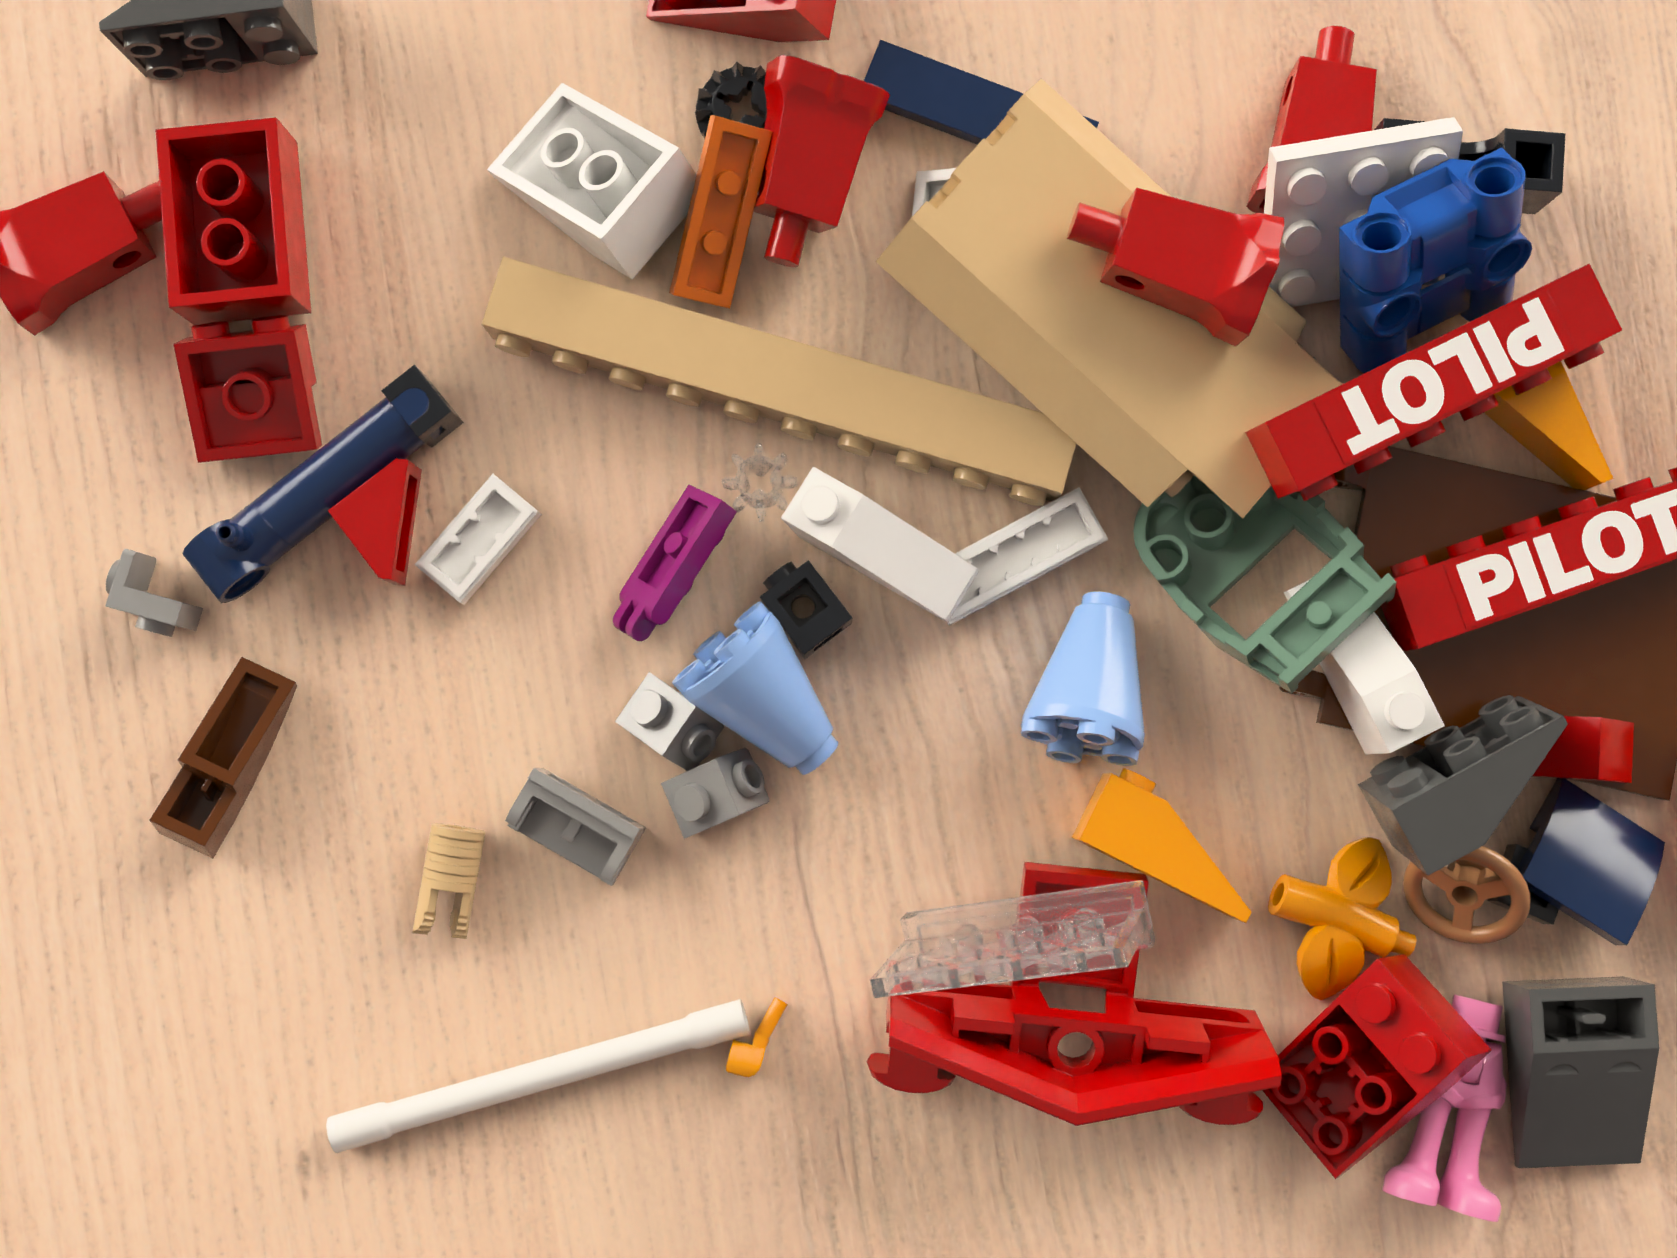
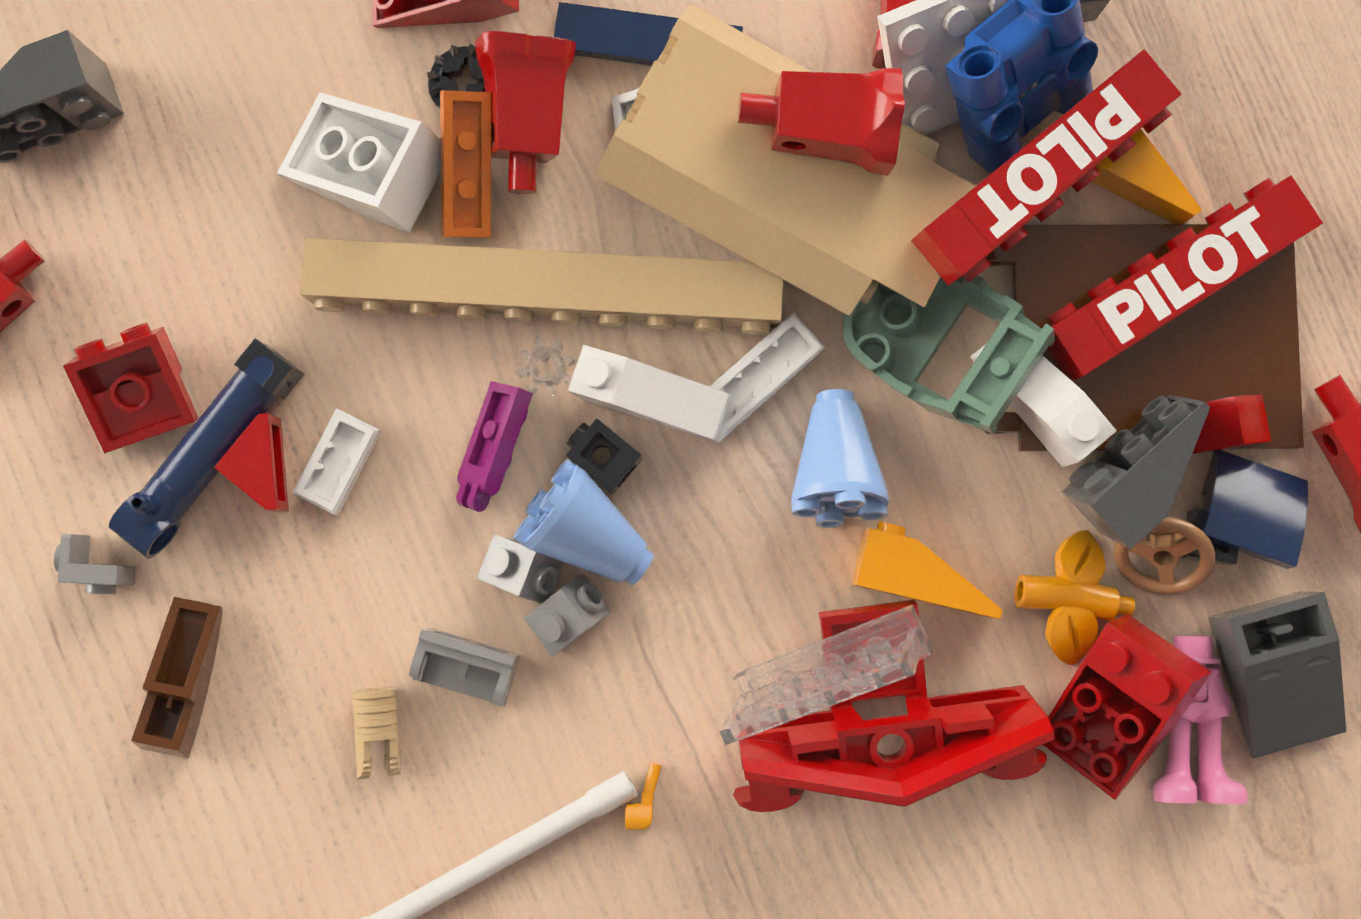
camera: 10 degrees left, 0 degrees up
(233, 221) = (87, 259): red brick -> none

